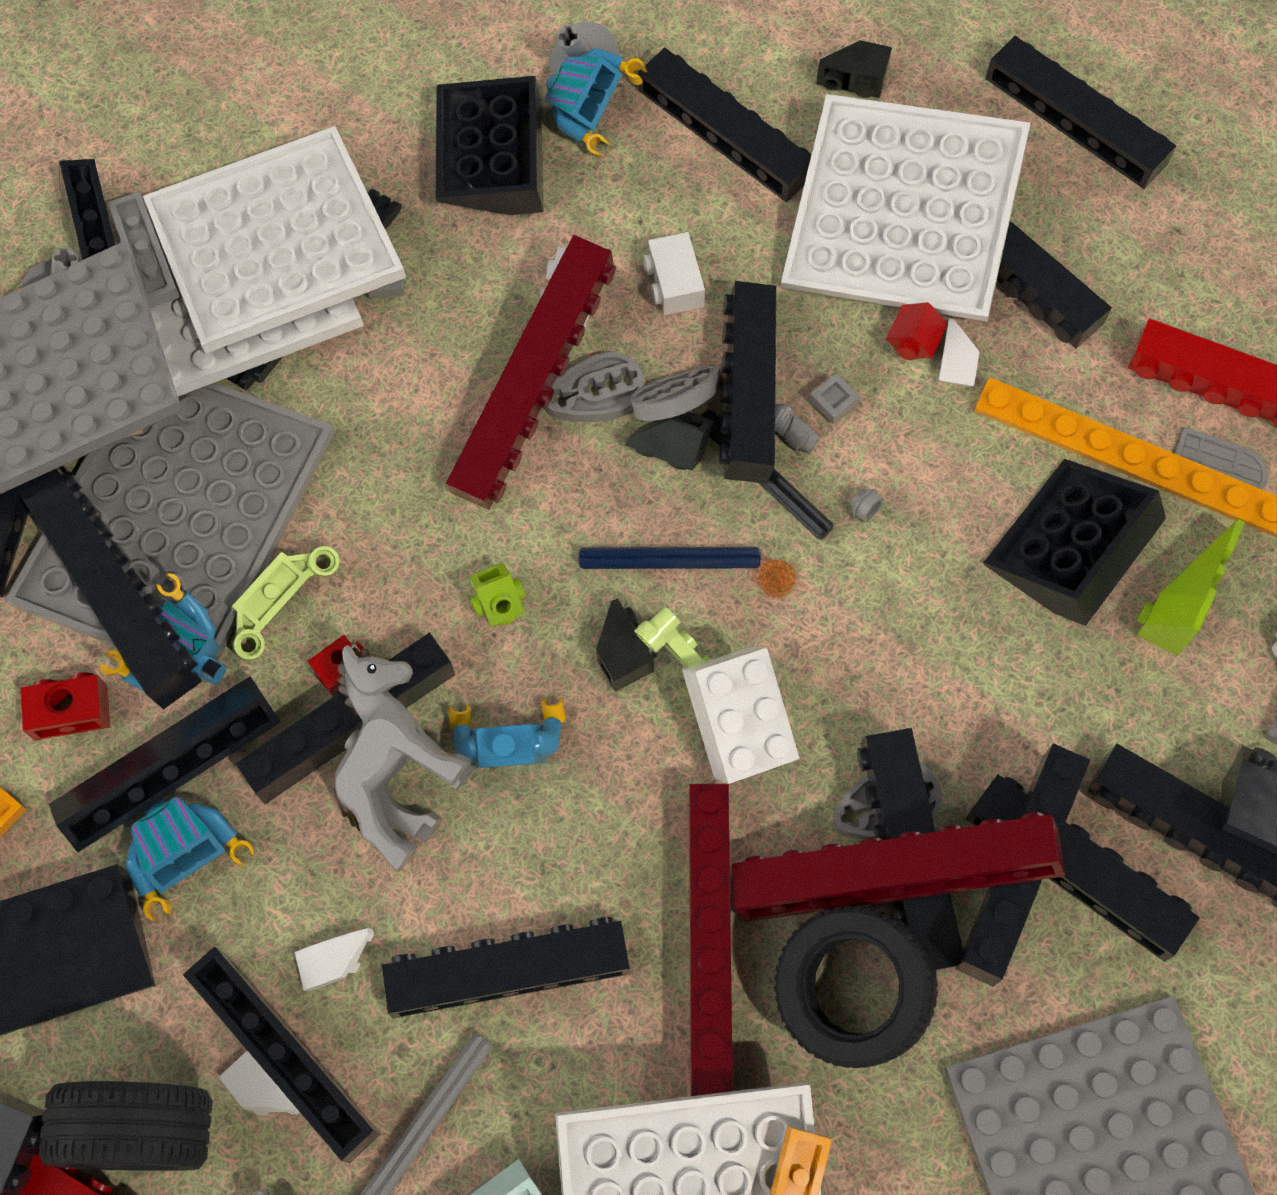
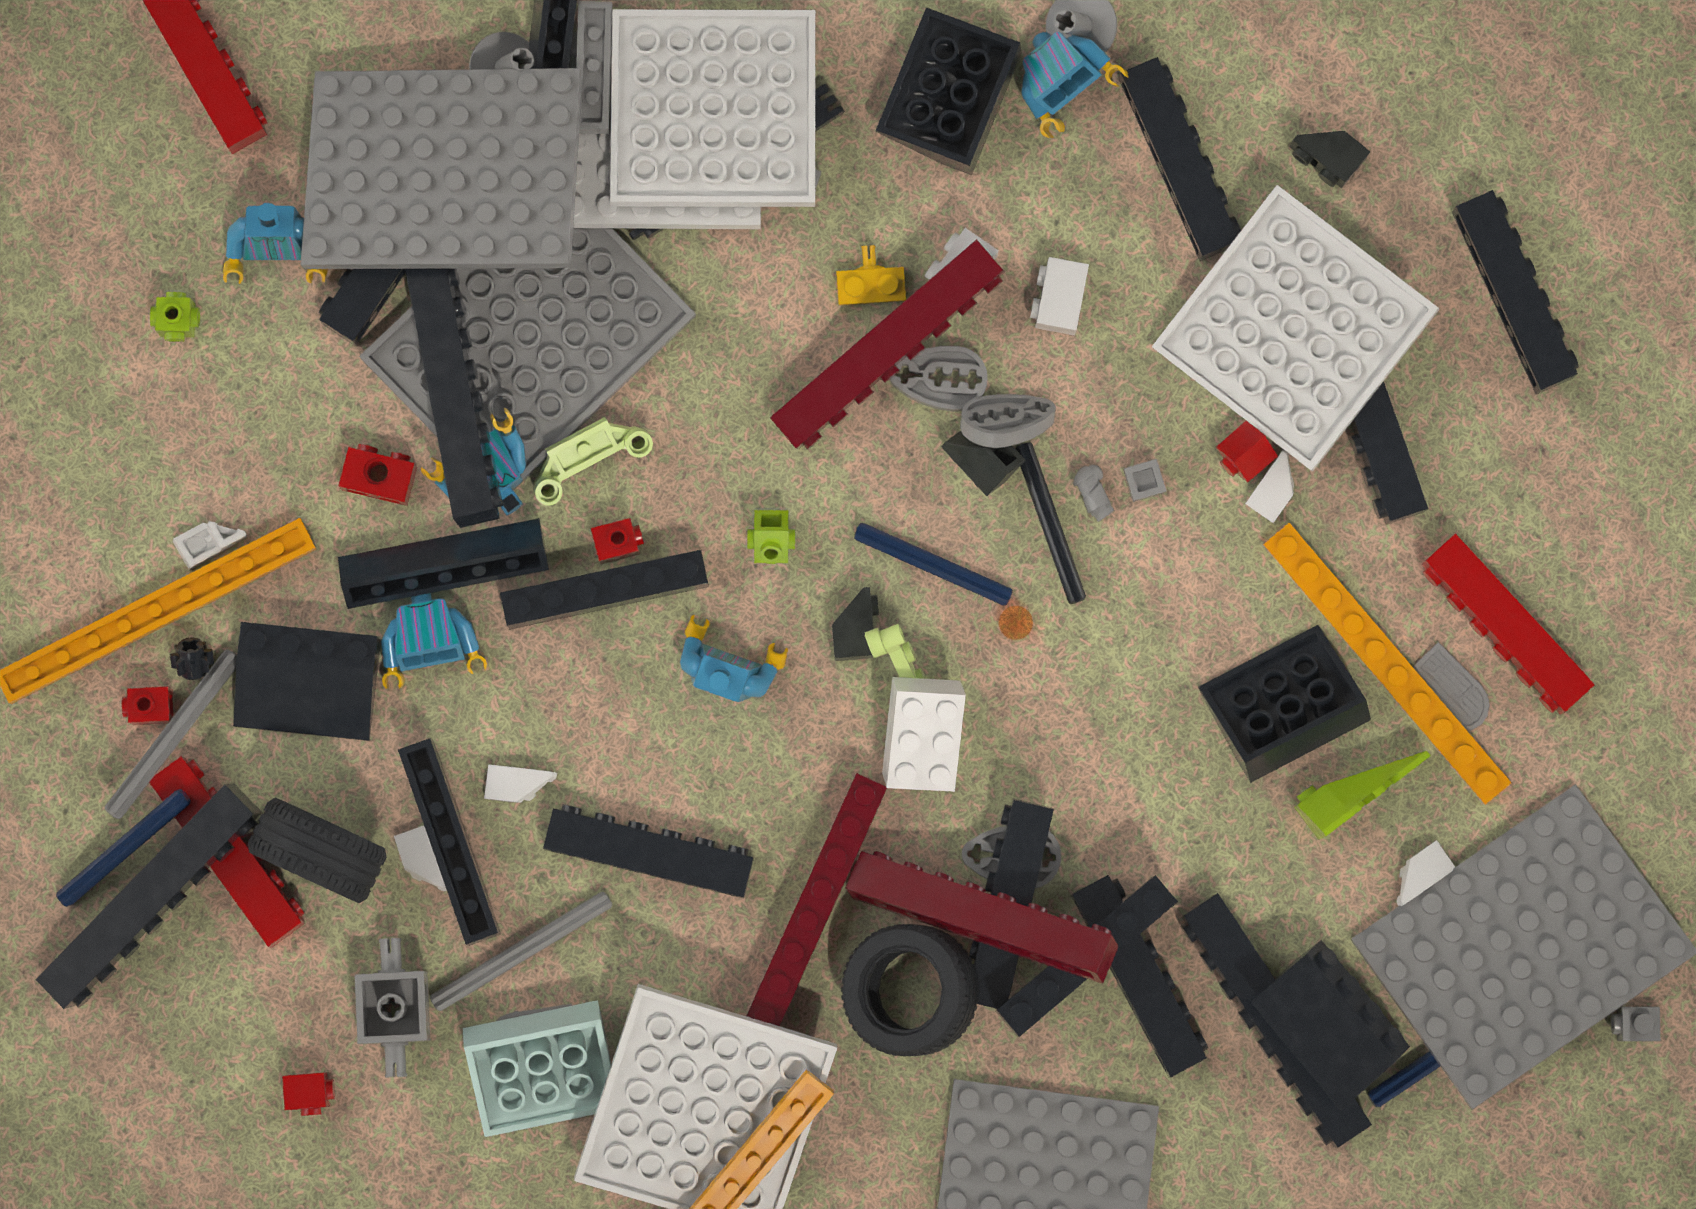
camera: 20 degrees right, 15 degrees up
(380, 751) = (620, 634): light grey animal -> none
(489, 336) = (870, 282): none -> yellow plate
(750, 383) = (1075, 435): black brick -> none
(866, 504) = (1123, 591): light grey plate -> none

